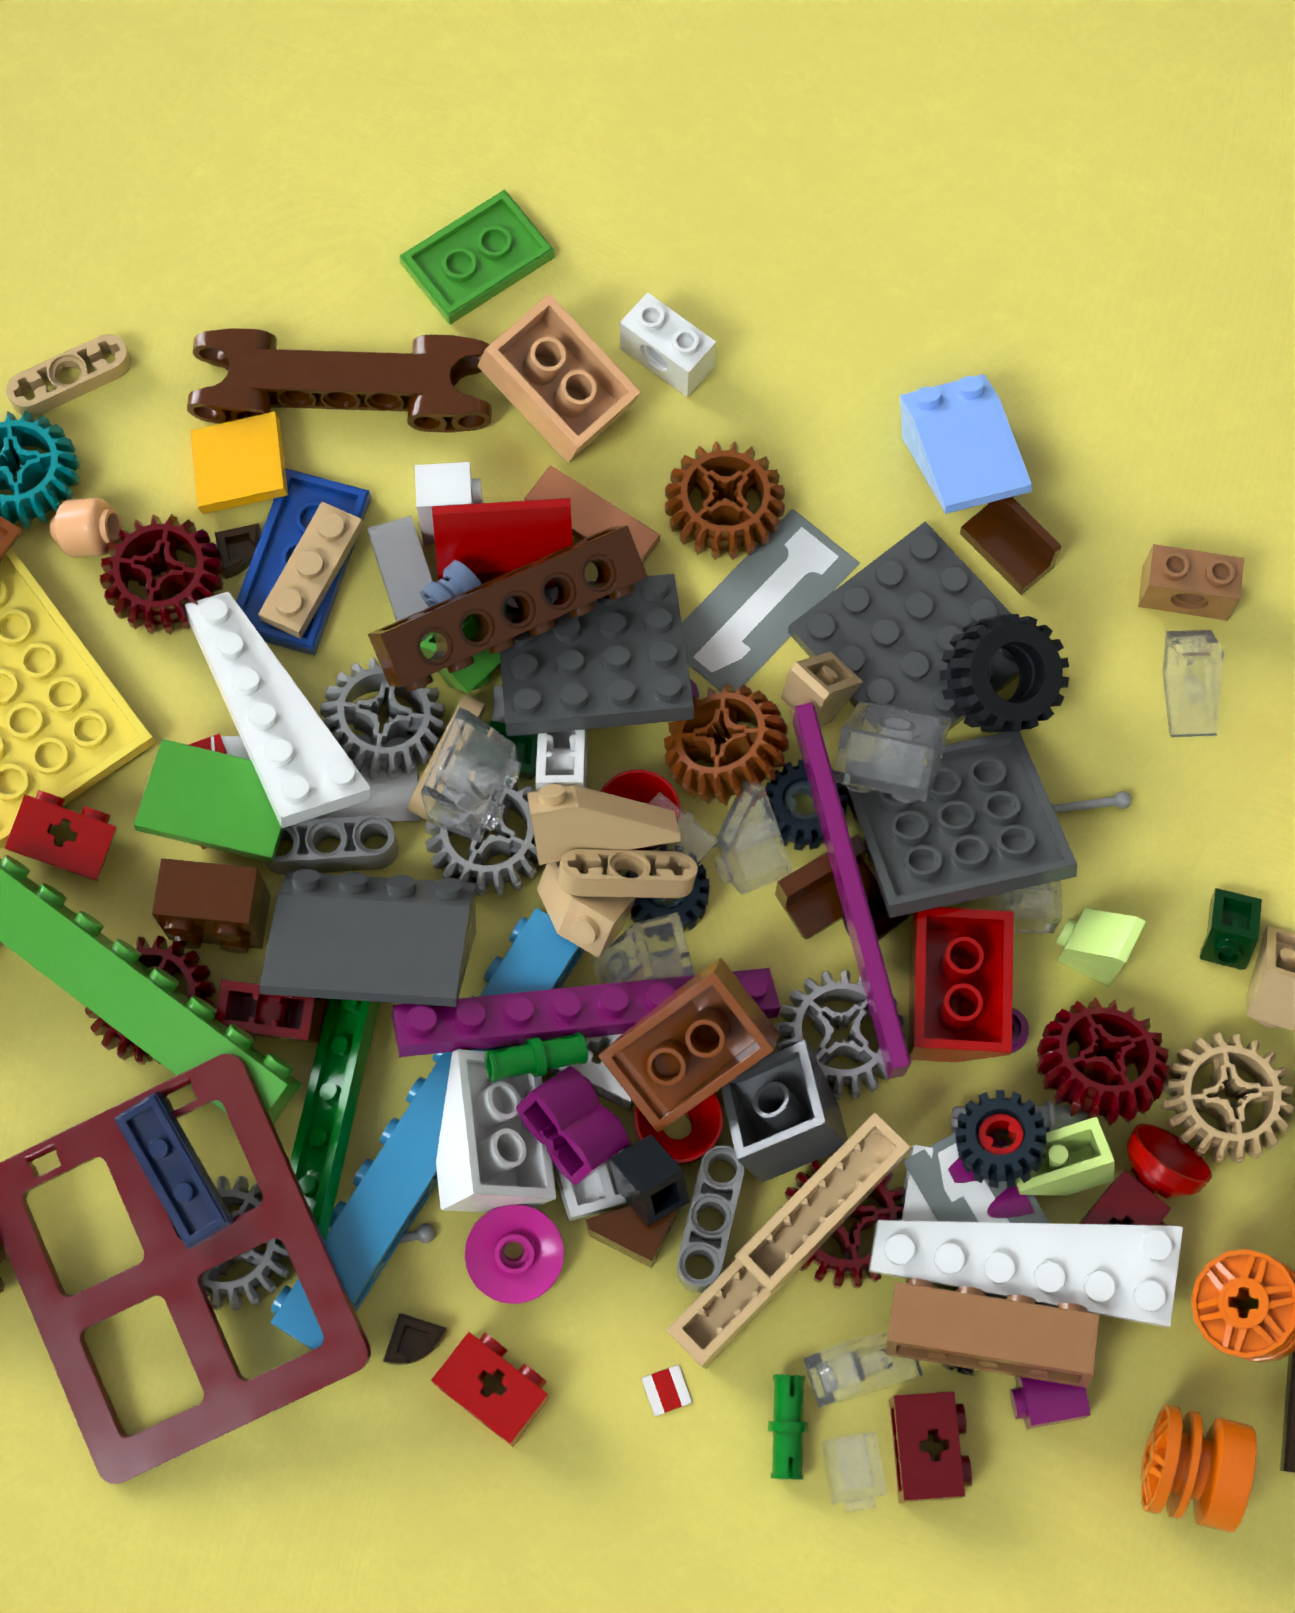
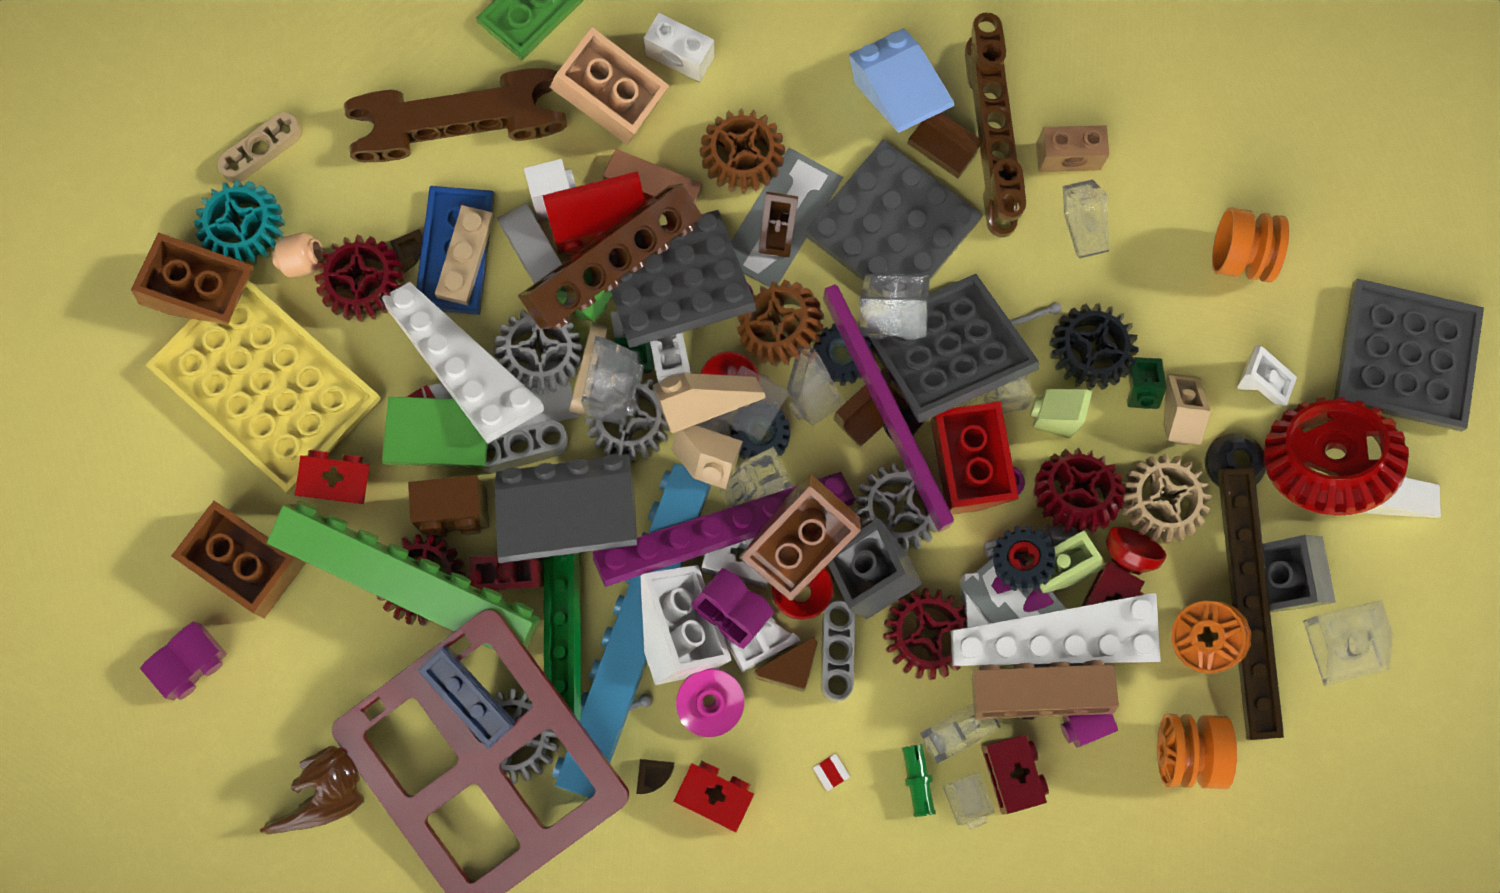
camera: 15 degrees left, 5 degrees up
(238, 462) = (395, 188): yellow tile -> none
(455, 580) = (569, 245): sand blue wheel -> none
(535, 1057) = (698, 567): green pin -> none
(649, 1180) = (793, 635): black brick -> none
(671, 873) = (756, 424): tan beam -> none
(753, 608) = (778, 224): none -> reddish brown slope
(788, 1241) = (895, 656): tan slope -> none
(823, 682) = (838, 268): tan slope -> none
(1038, 671) = (983, 231): black tyre -> none
(1086, 461) = (1001, 175): none -> reddish brown piece
(1182, 874) = (1119, 354): none -> black gear

